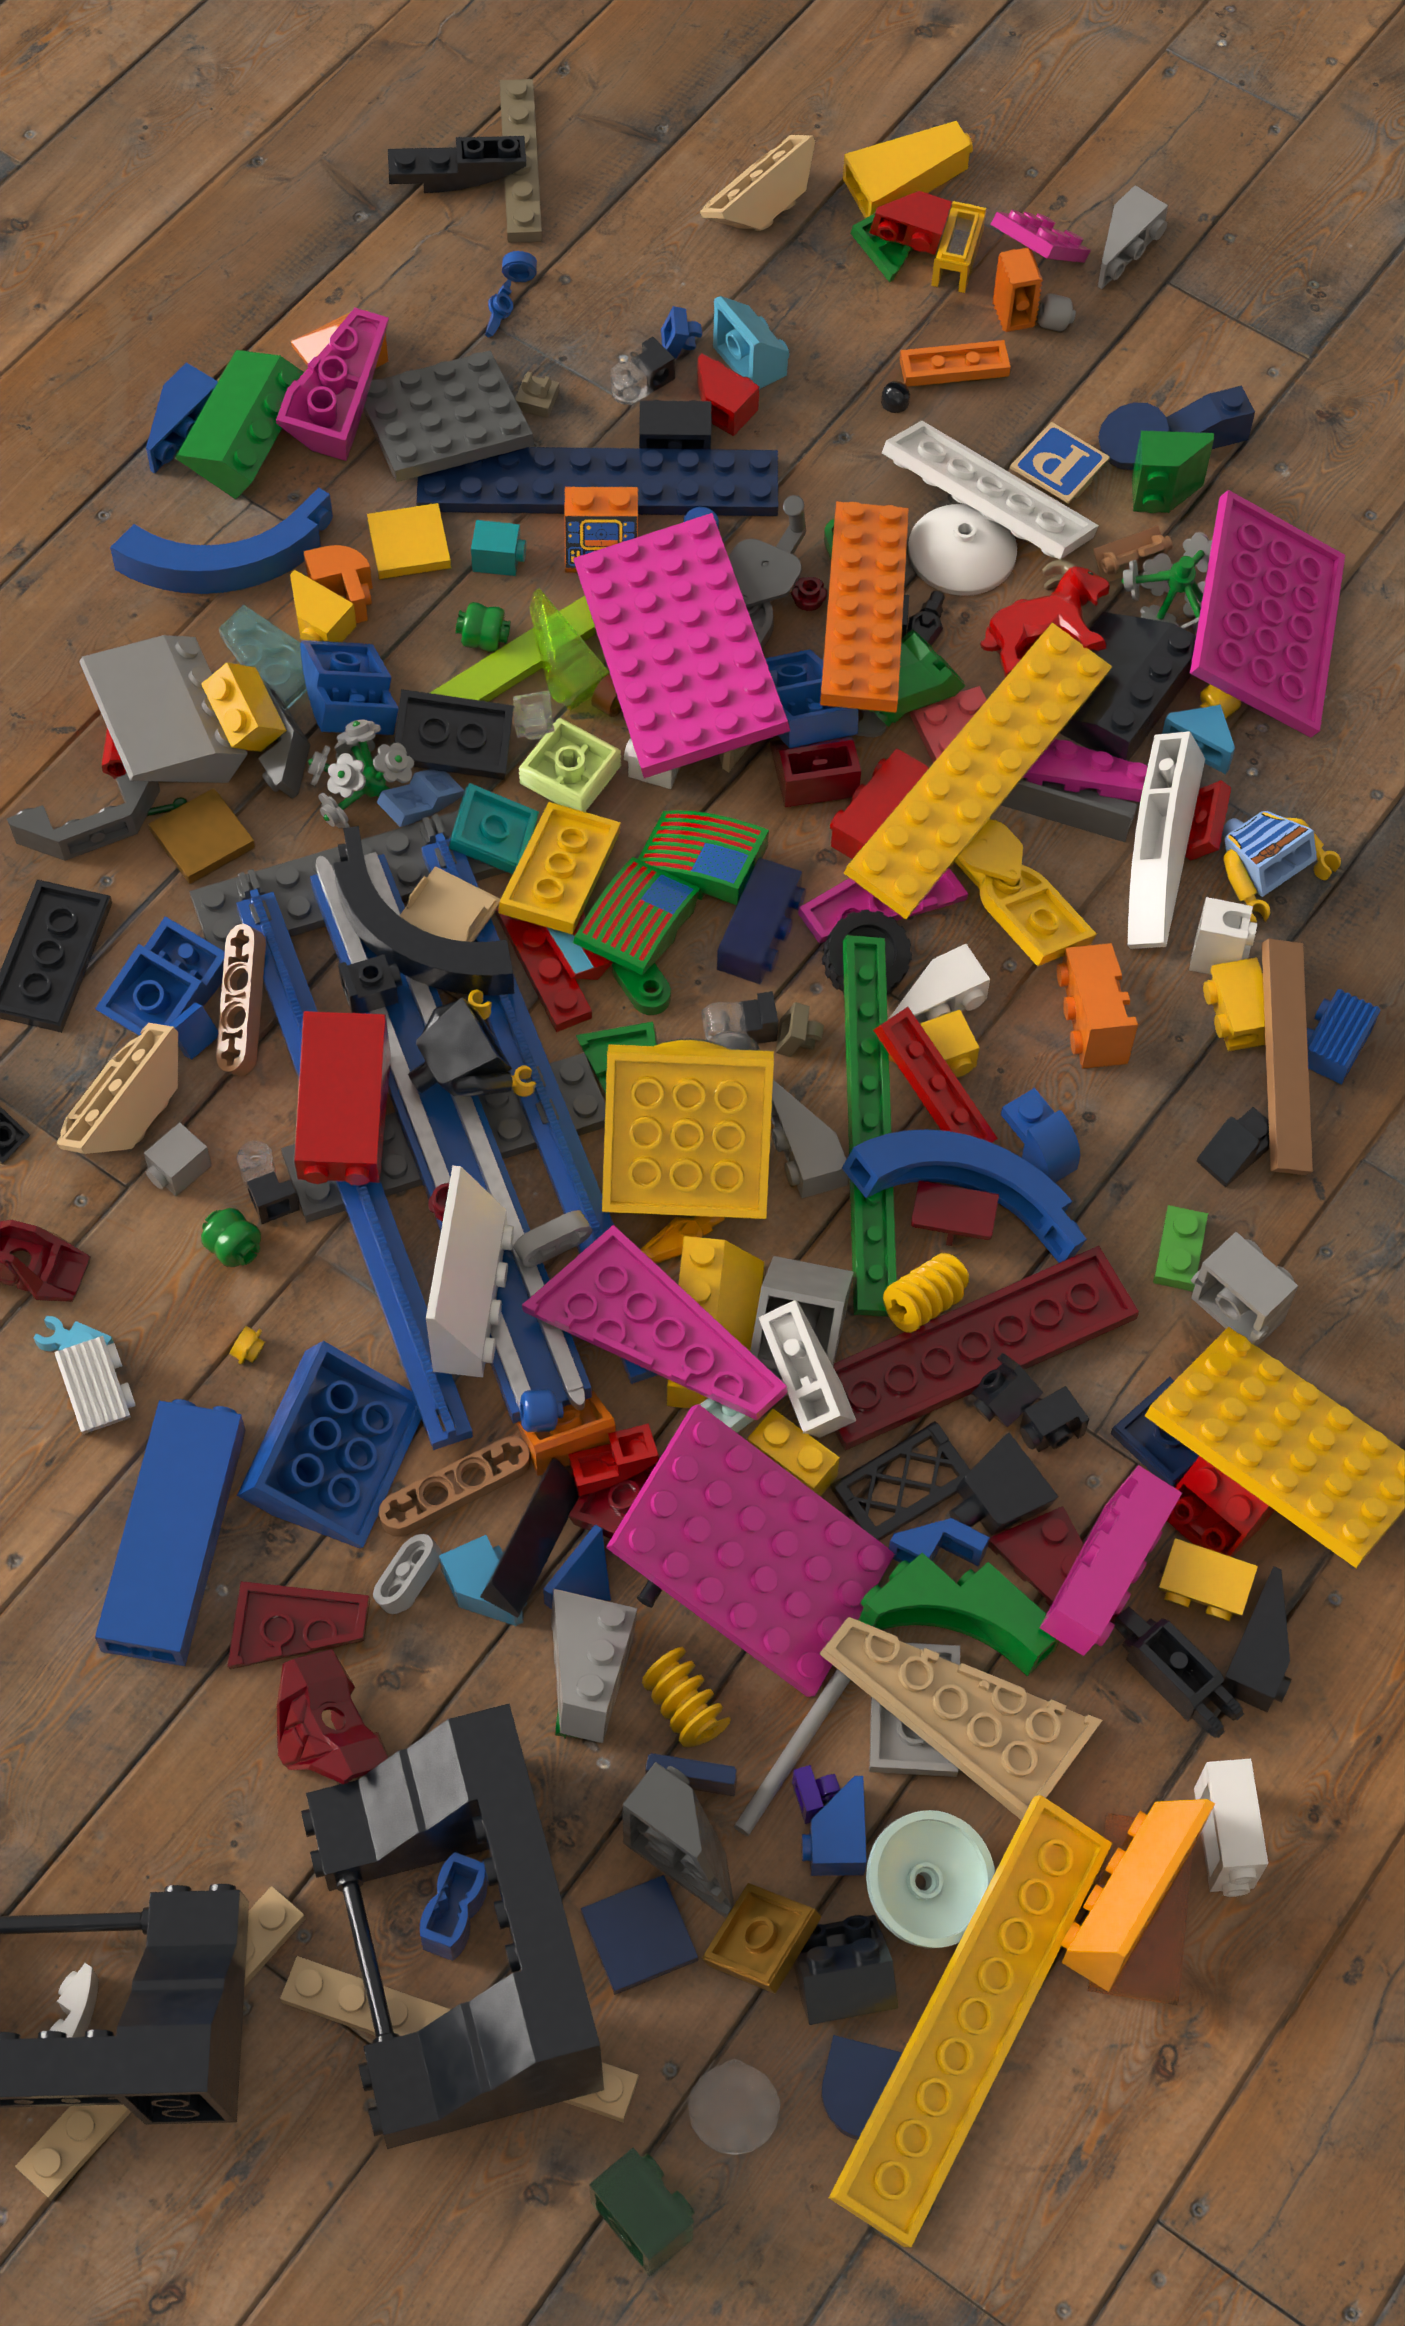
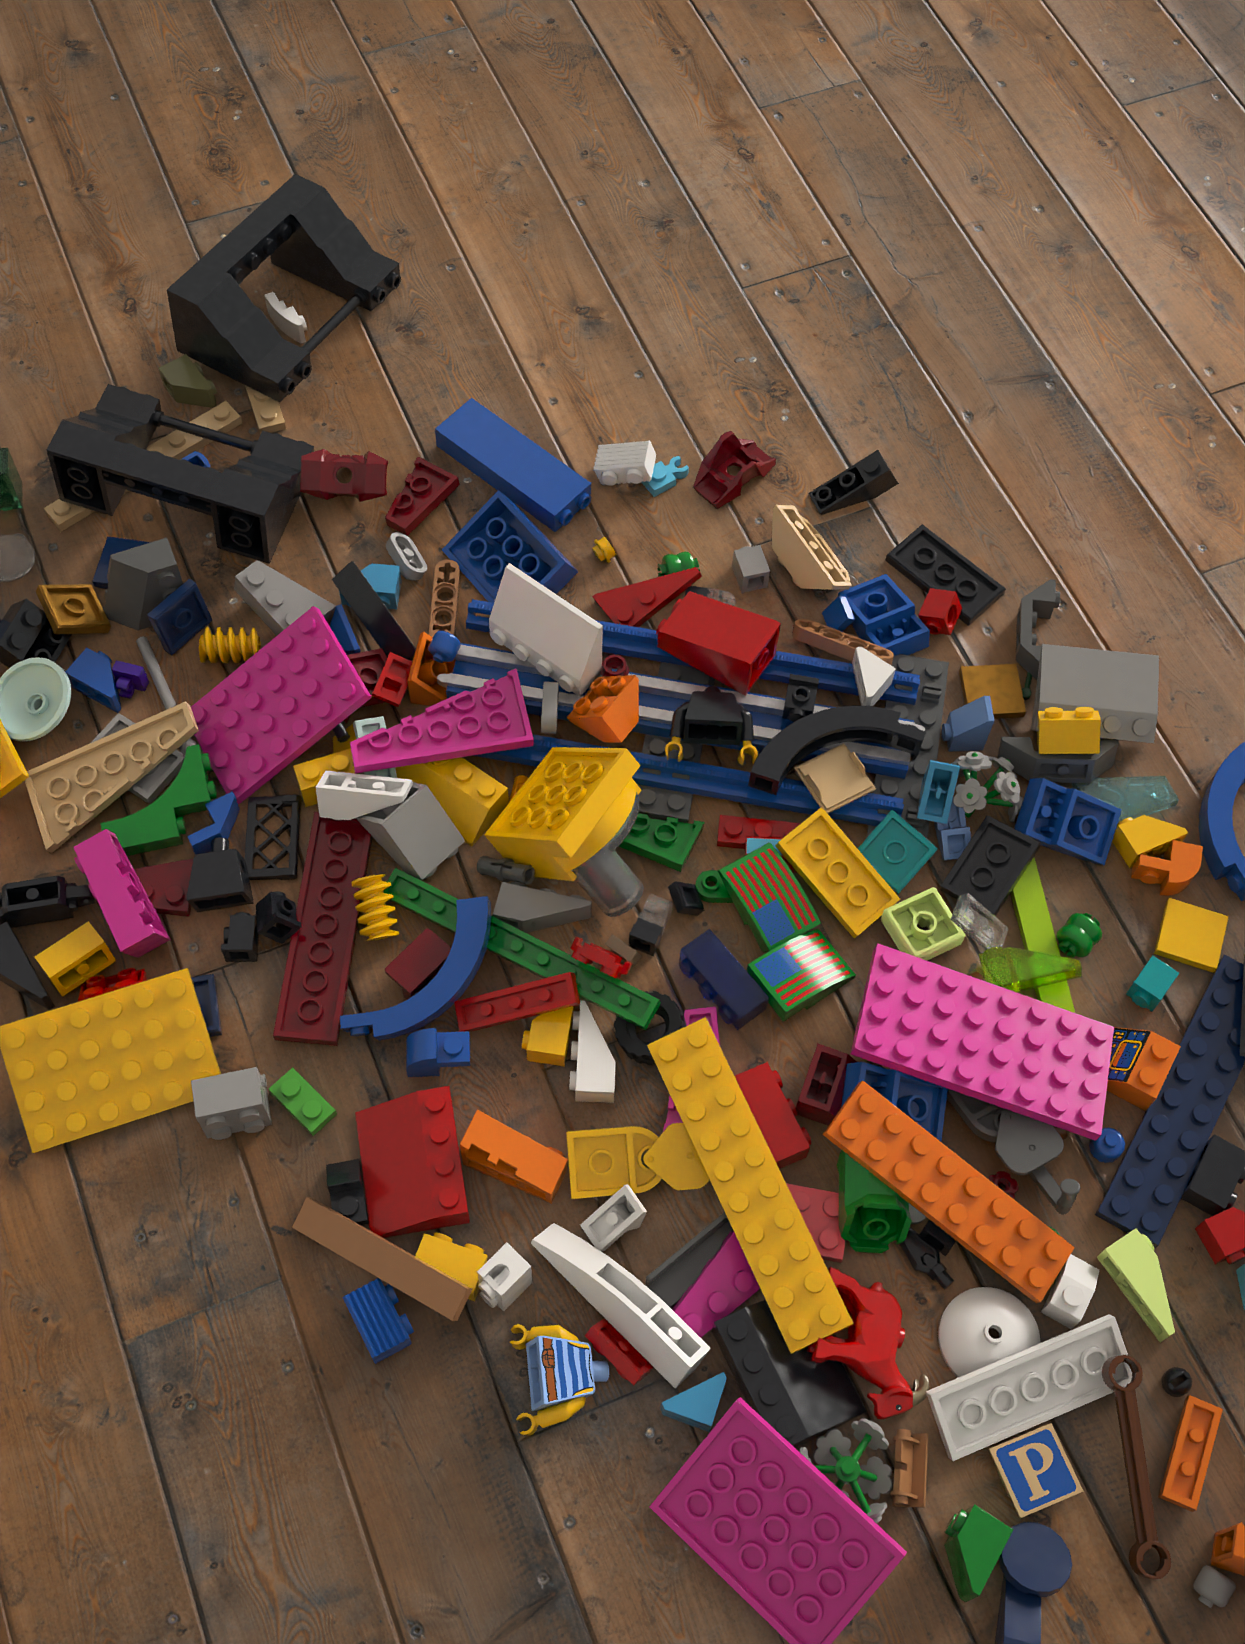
camera: 120 degrees right, 0 degrees up
(125, 922) = (940, 611): none -> red brick
(278, 821) = (969, 726): none -> medium blue slope
(281, 2077) = (187, 383): none -> olive slope
(294, 924) = (871, 675): none -> white slope
(316, 1259) = (640, 601): none -> red wing
(403, 804) = (937, 791): none -> dark azure slope
(516, 1170) = (608, 708): none -> orange slope
(687, 1003) = (686, 898): none -> black tile
(782, 1197) = (506, 870): none -> dark grey pin
(821, 450) = (1139, 1277): none -> yellowish green slope
(836, 1018) = (609, 960): none -> red plate
(876, 487) = (1071, 1292): none -> white slope
(1066, 364) = (1136, 1467): none -> reddish brown piece
(1090, 882) = (614, 1218): none -> white slope
(1165, 1097) = (412, 1164): none -> red slope

